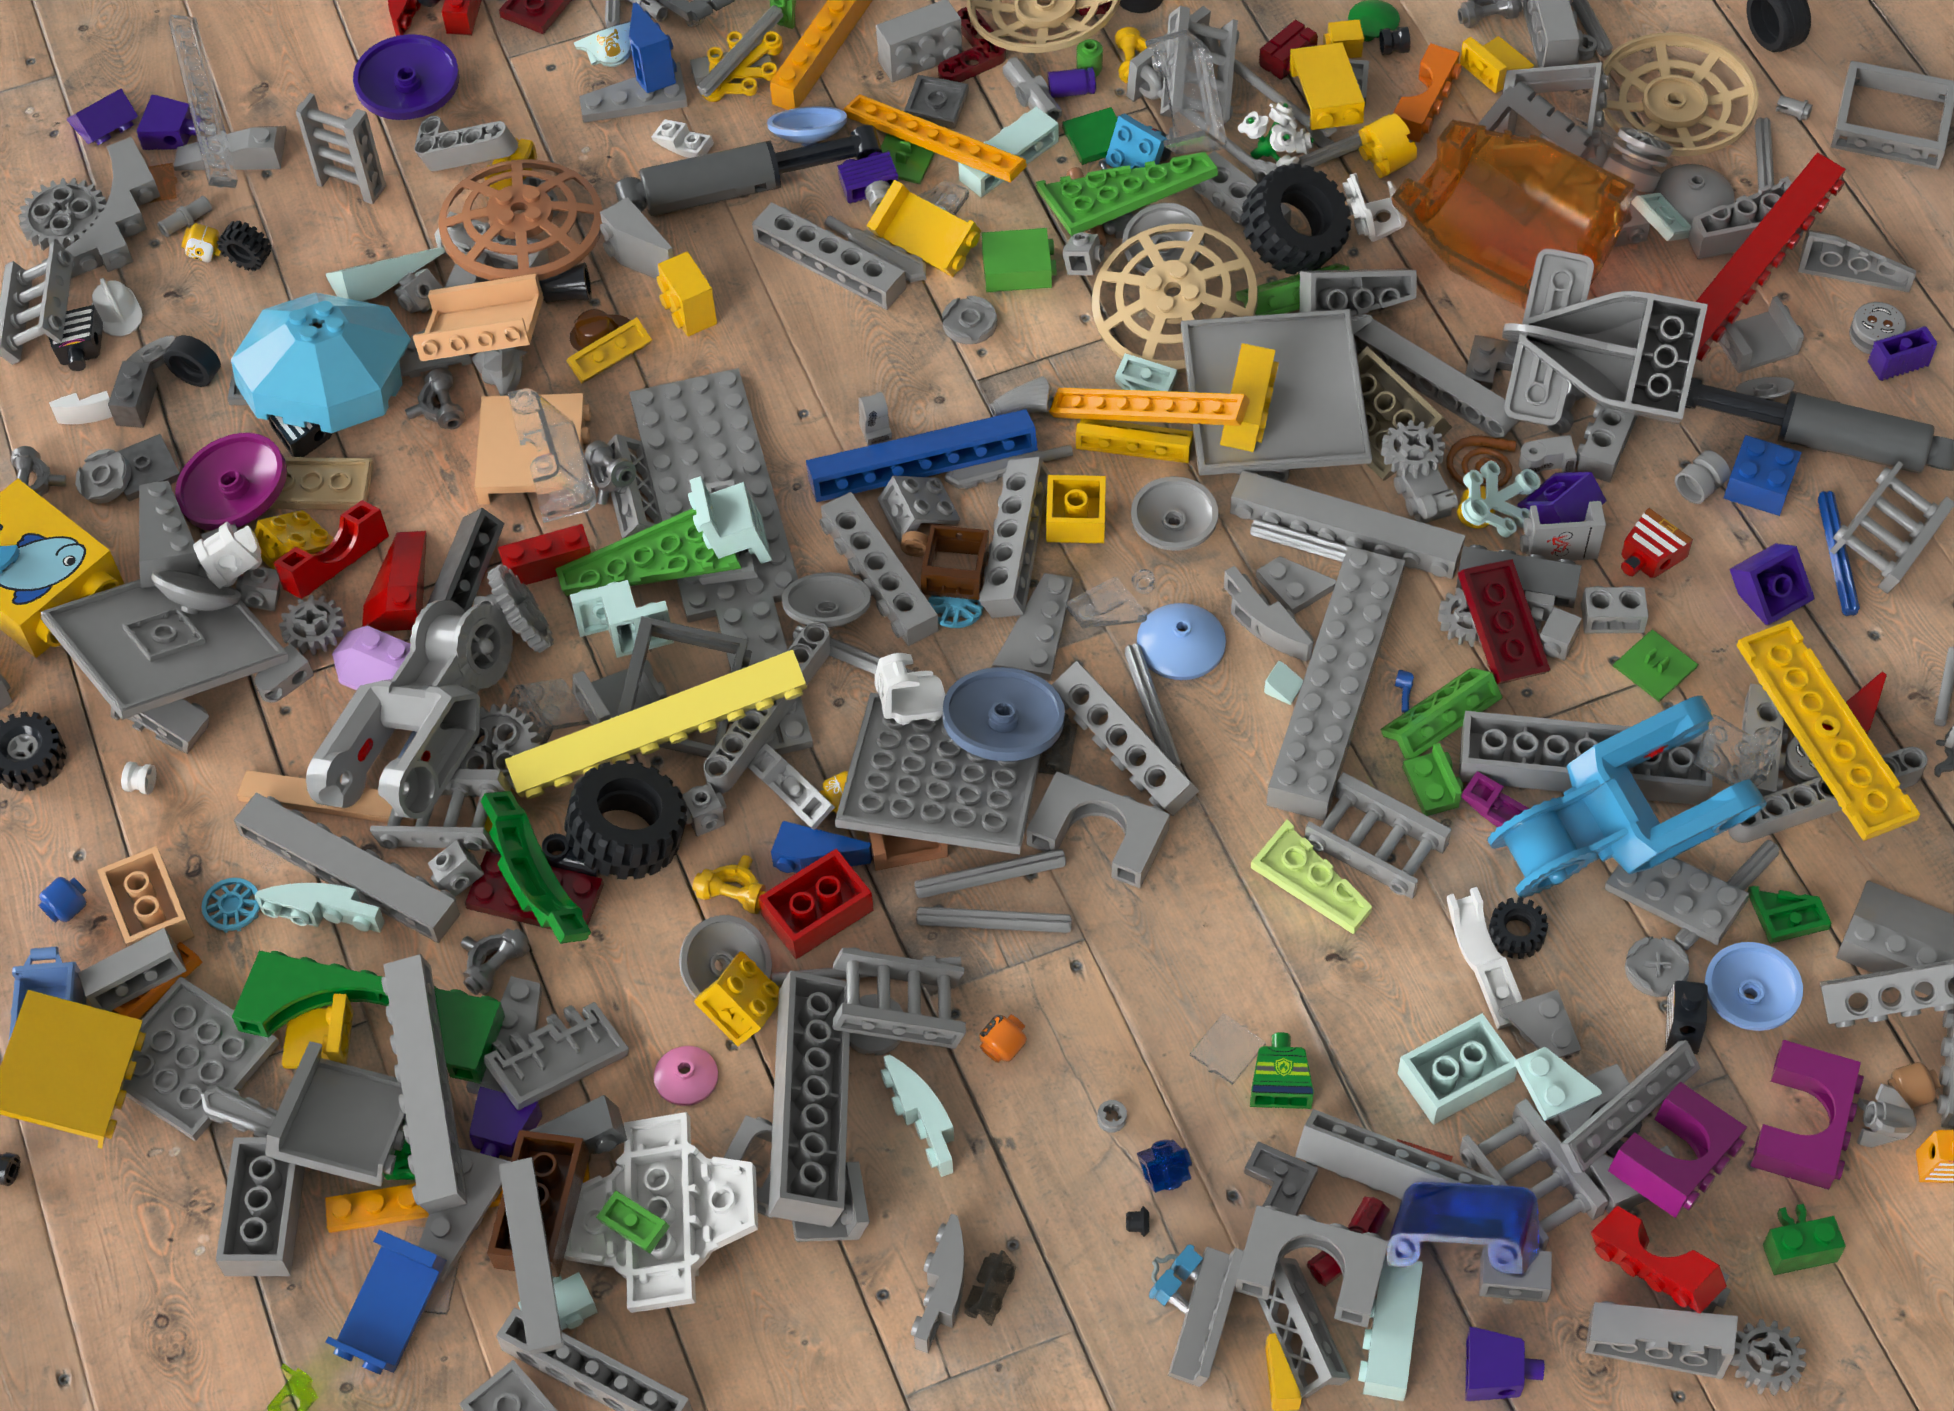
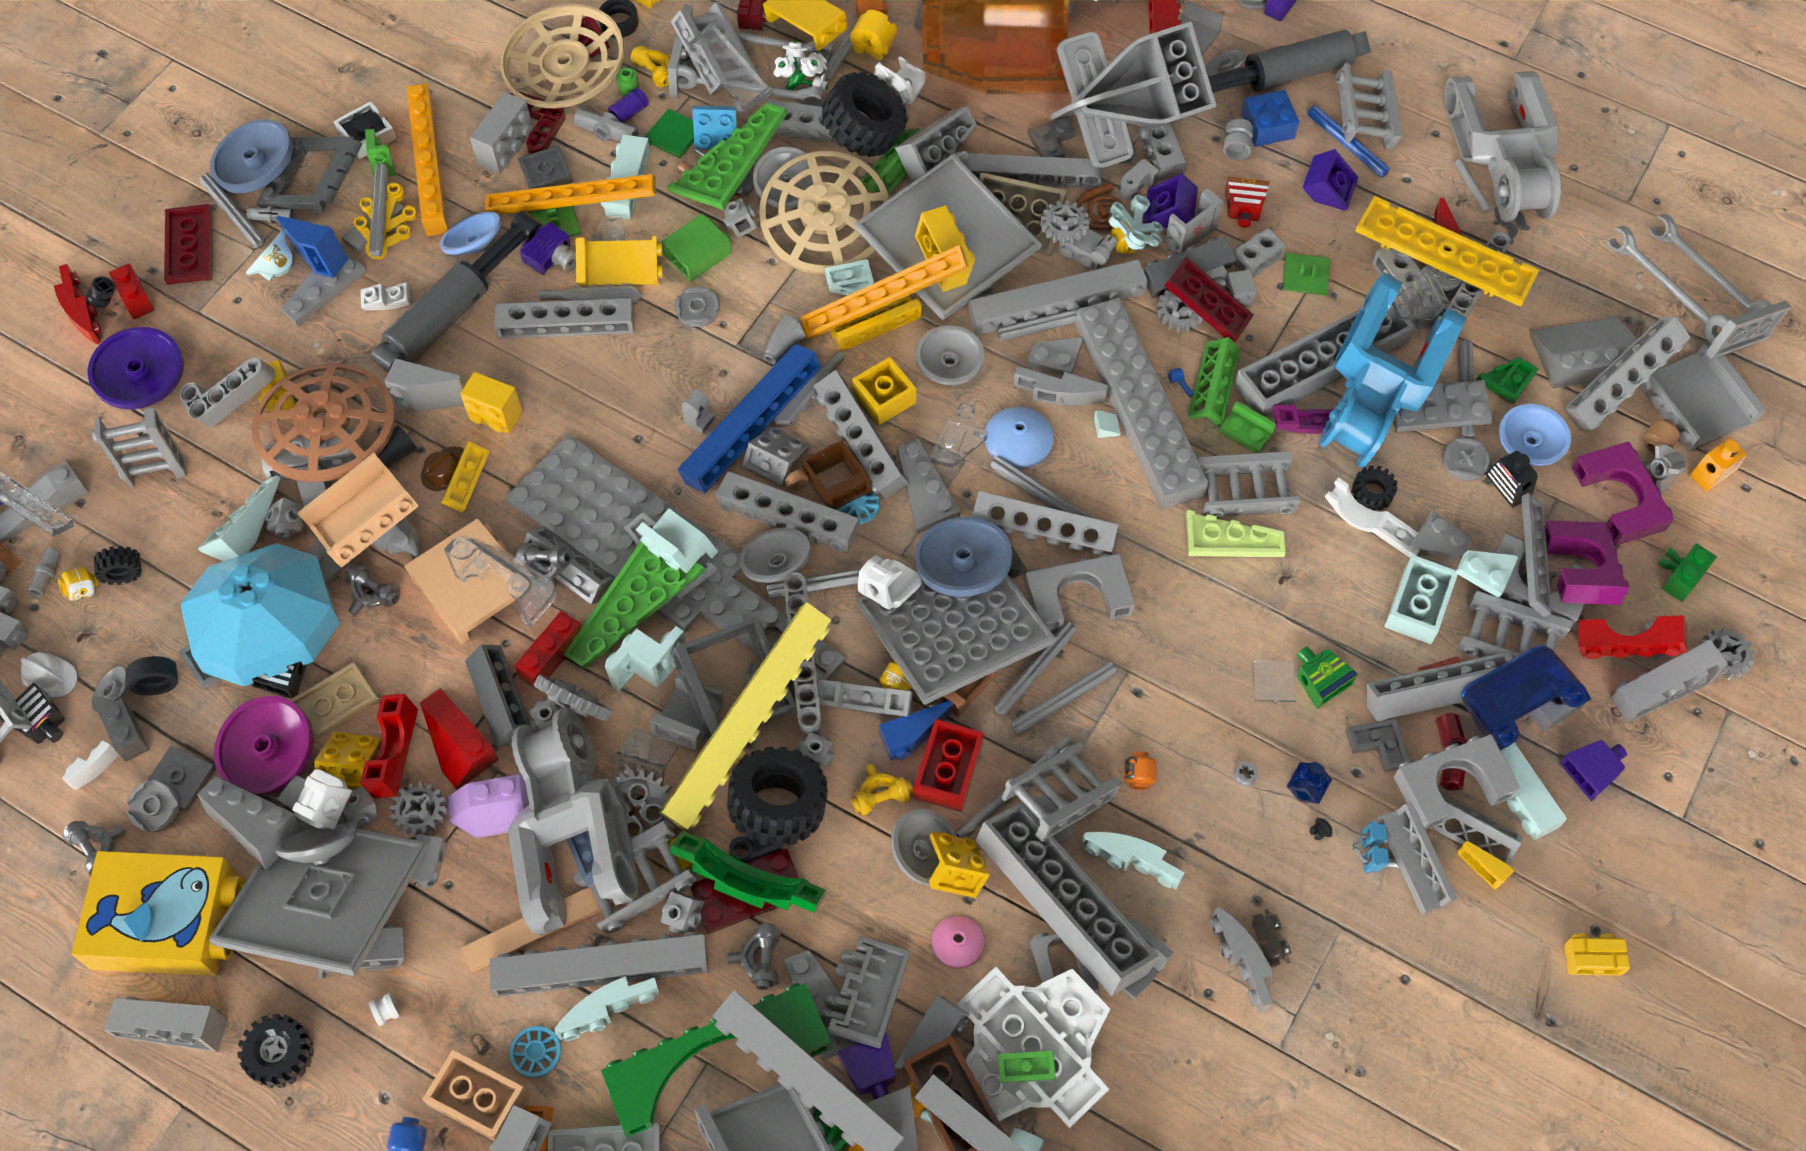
camera: 40 degrees left, 5 degrees up
(321, 1025) = (681, 1097): yellow bracket -> none

